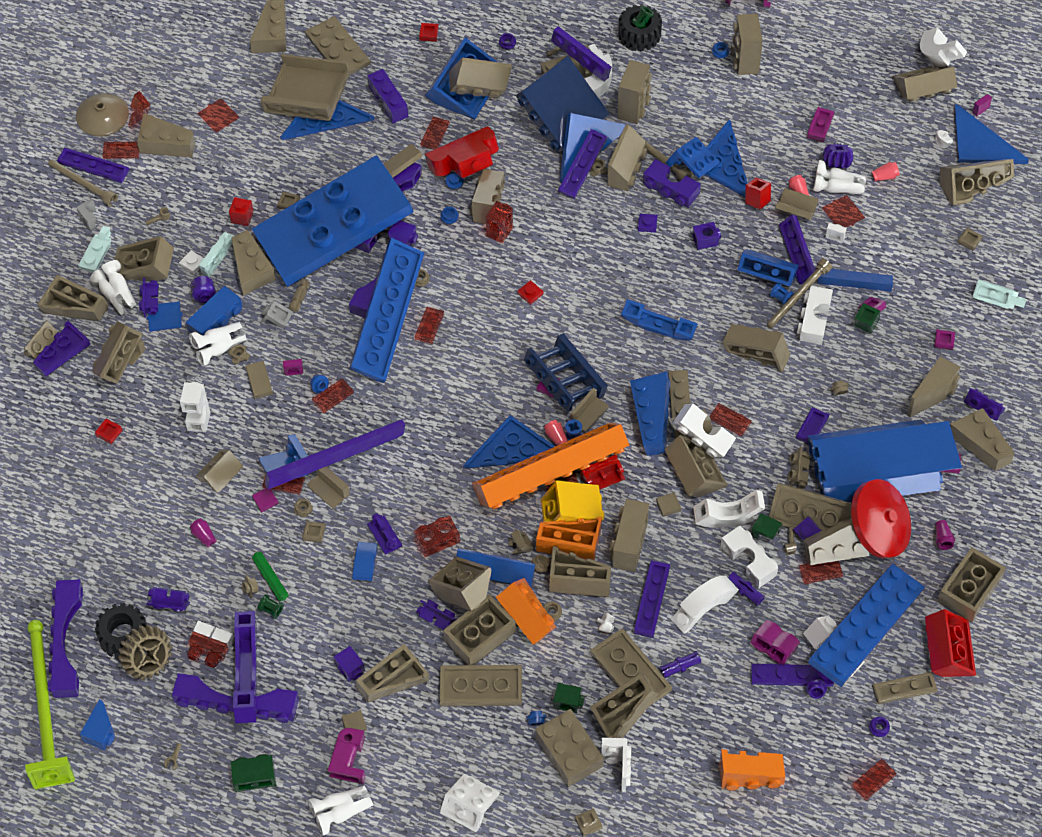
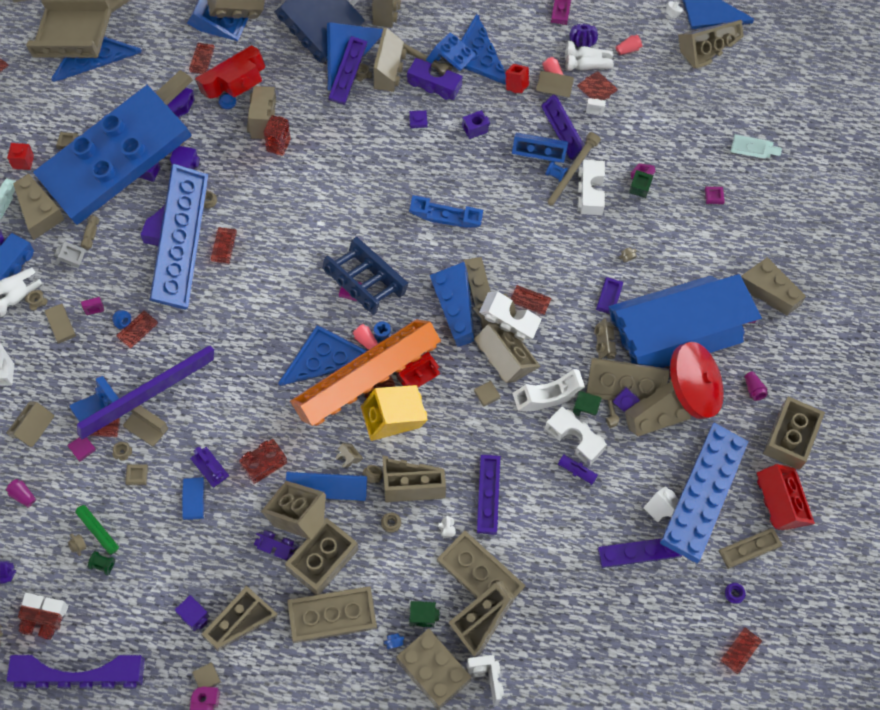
camera: 15 degrees left, 5 degrees up
(245, 667) = (84, 656): dark purple arch -> none
(383, 88) = (146, 21): dark purple arch -> none
(449, 215) = (227, 134): blue plate -> none
(526, 610) = (366, 528): orange wedge -> none
(530, 292) = (317, 200): red plate -> none
(575, 537) = (397, 443): orange wedge -> none
(589, 410) = (394, 310): dark tan panel -> none
(629, 535) = (456, 432): dark tan brick -> none
(680, 664) = (528, 559): dark purple pin -> none
(708, 595) = (540, 490): white arch -> none
(750, 770) = (621, 663): orange wedge -> none
(757, 344) = (544, 222): dark tan wedge -> none
(775, 642) = (618, 521): magenta brick -> none
(816, 688) = (667, 563): dark purple plate -> none
(820, 572) = (645, 442): clear red tile -> none
(857, 280) = (624, 149): blue slope -> none
(935, 386) = (721, 239): dark tan slope -> none
(970, 239) = (717, 98): dark tan tile -> none
(978, 401) = (762, 251): dark purple hinge -> none

